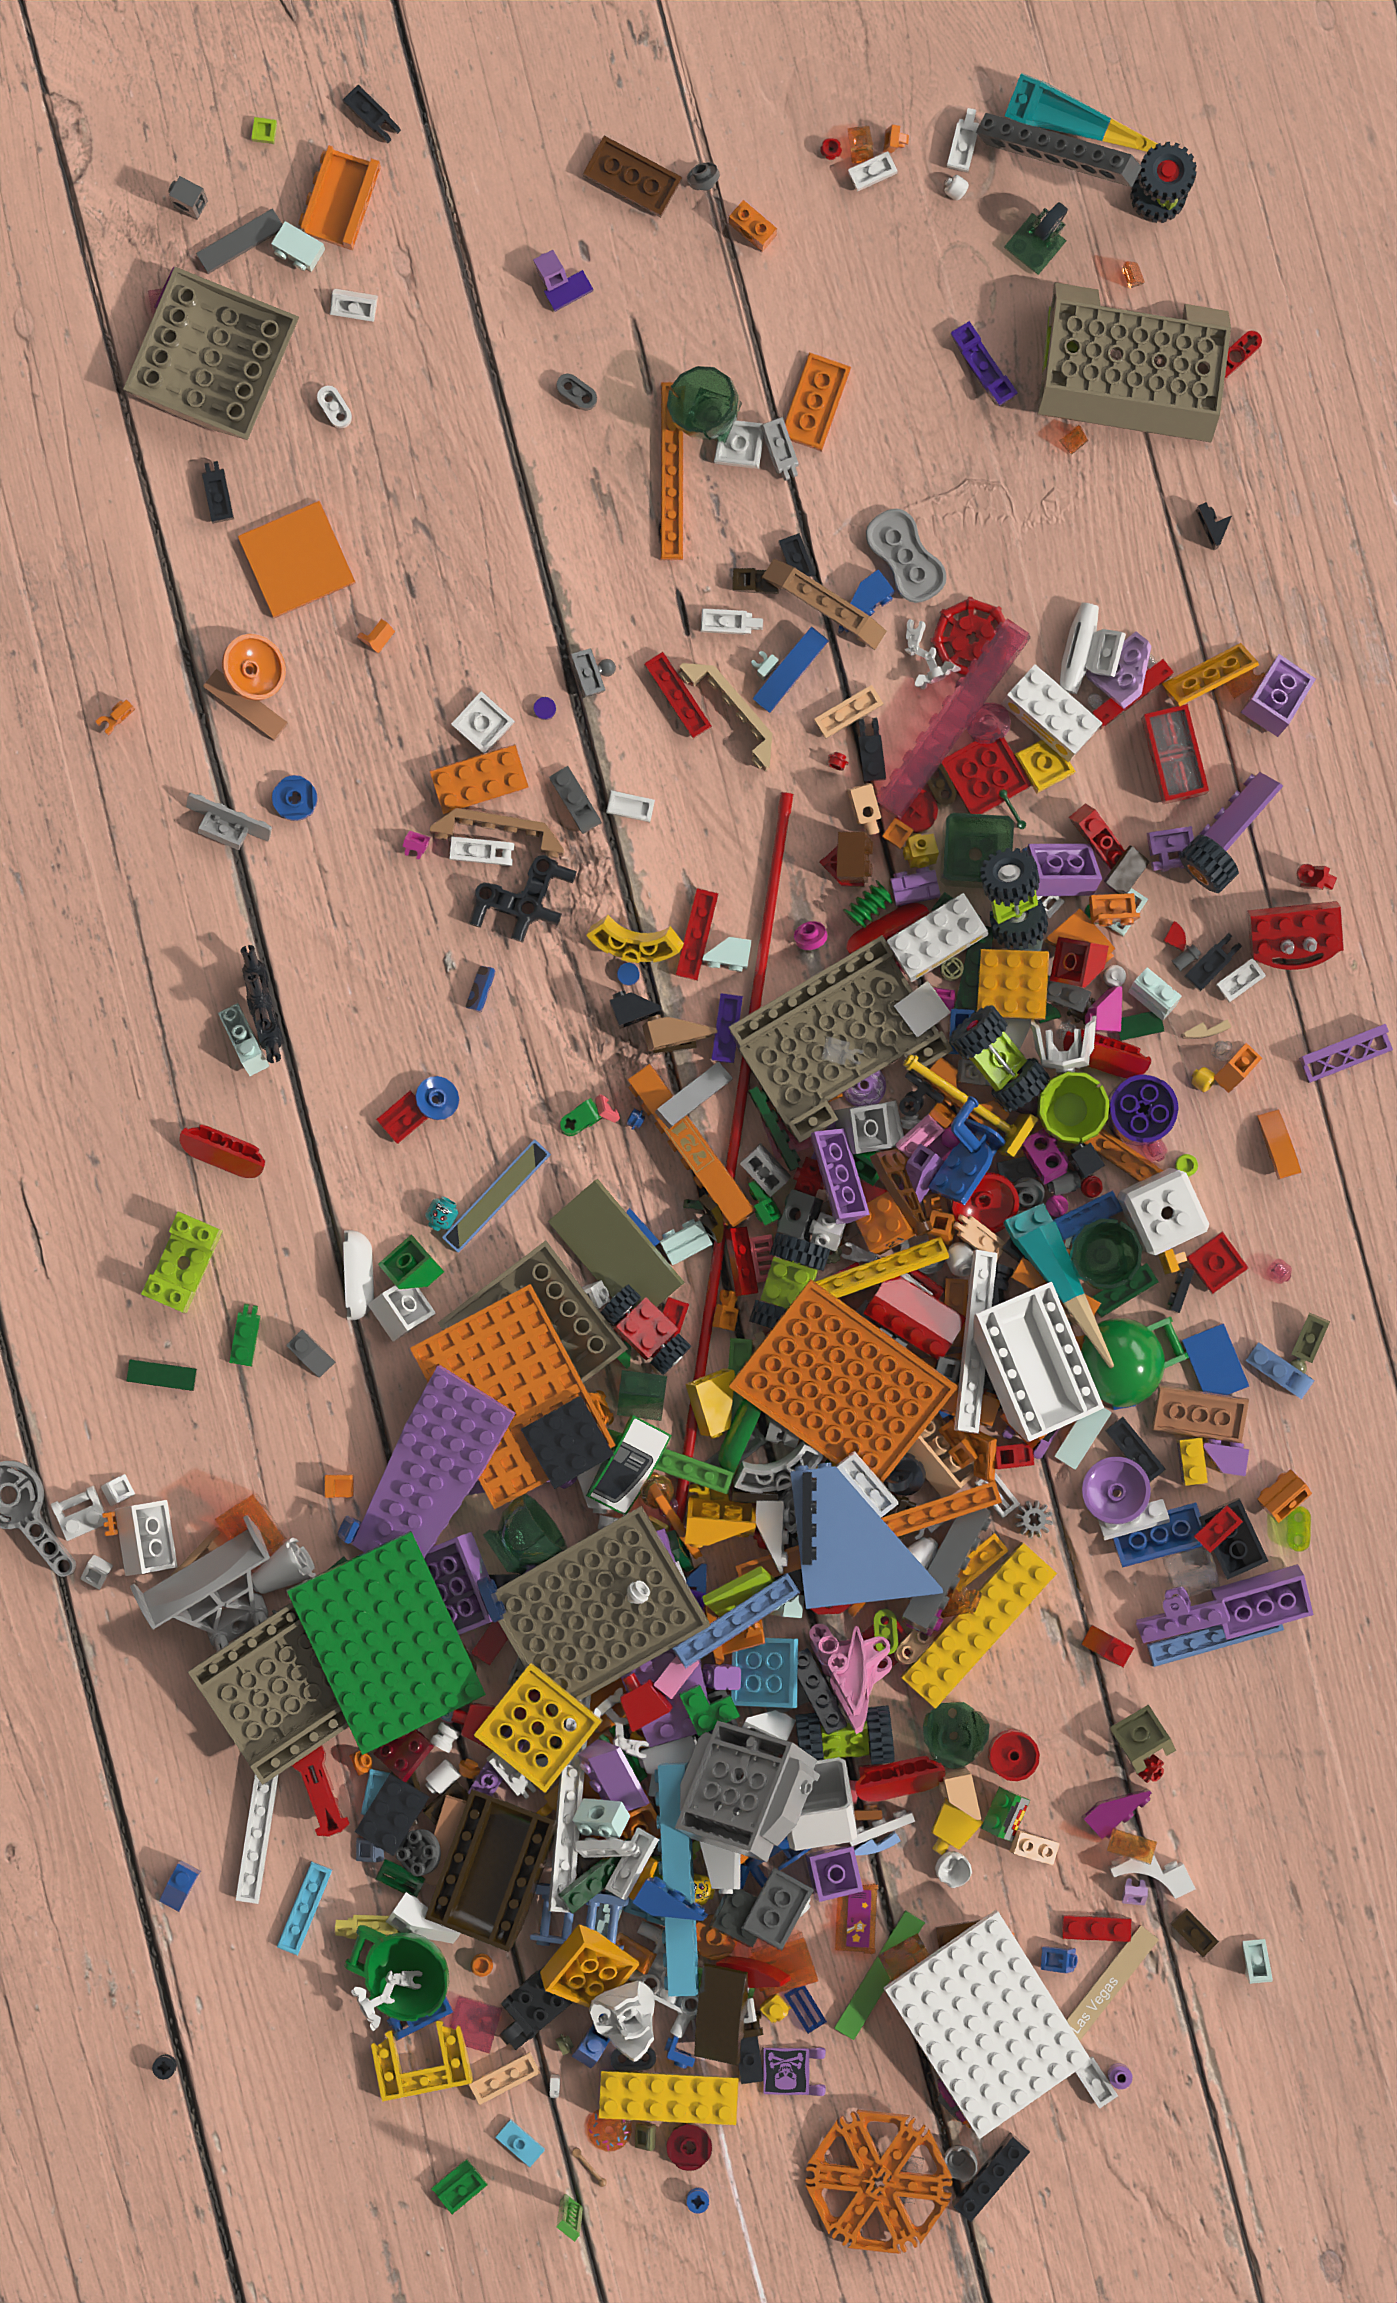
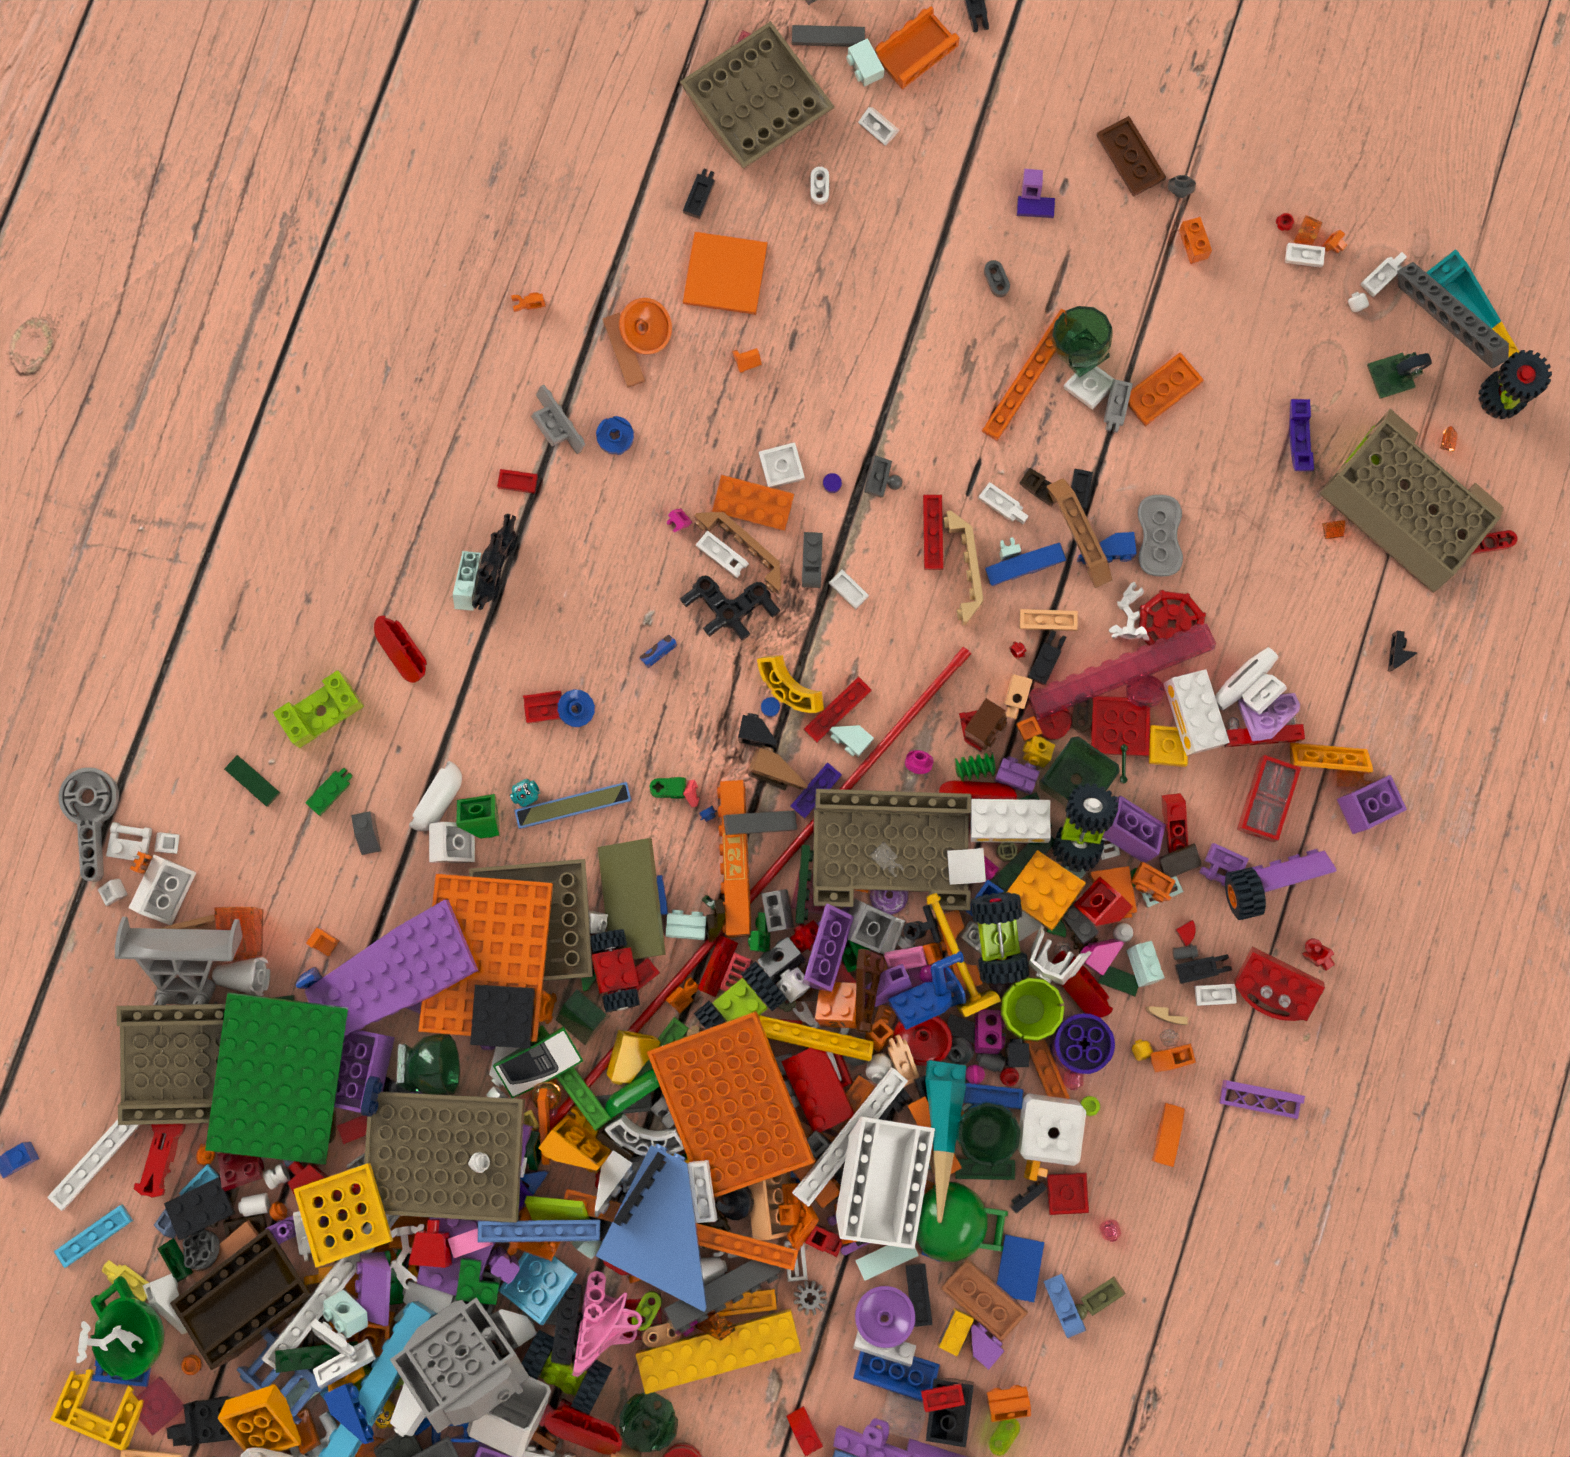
camera: 40 degrees right, 5 degrees down
(226, 907) = (517, 481): none -> red tile

